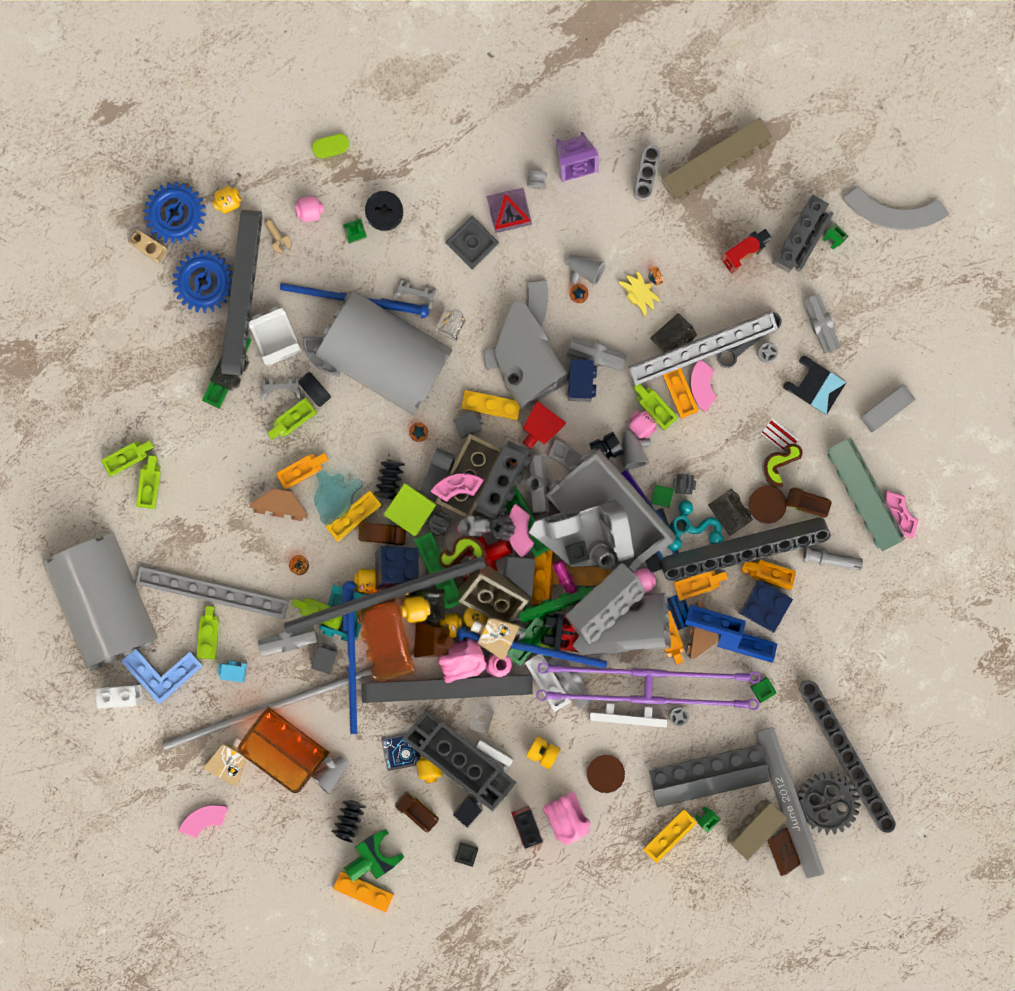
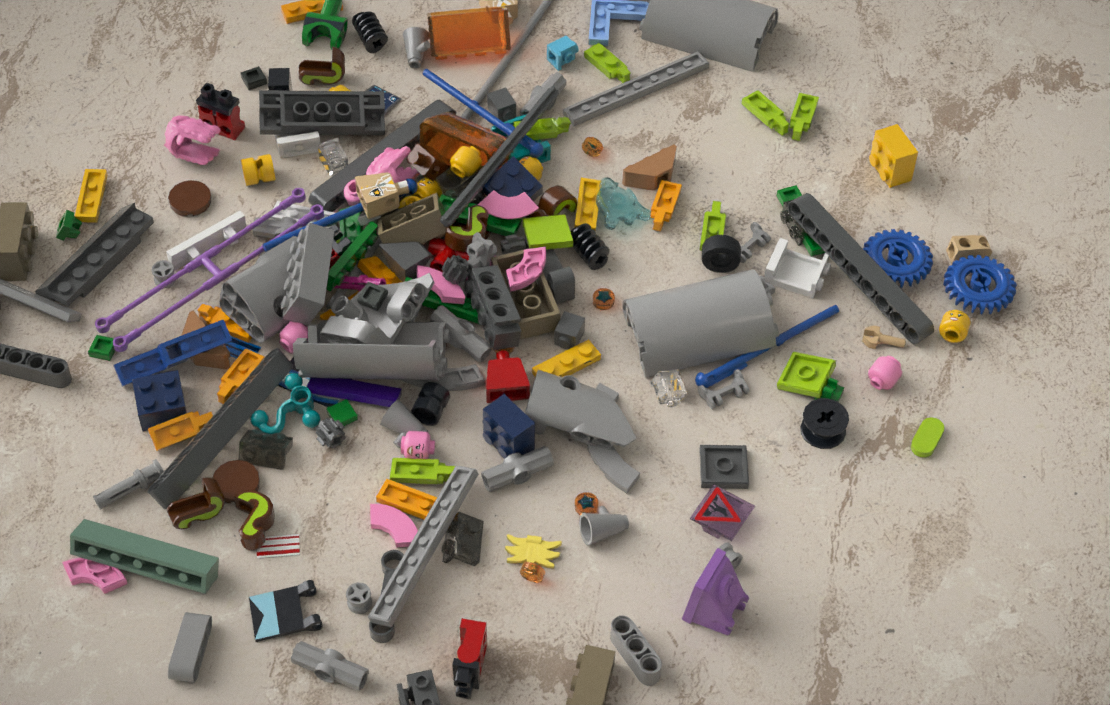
camera: 135 degrees right, 35 degrees down
(115, 358) = (893, 155): none -> yellow brick
(355, 255) = (806, 374): none -> lime tile
(418, 551) = (509, 207): none -> bright pink tile

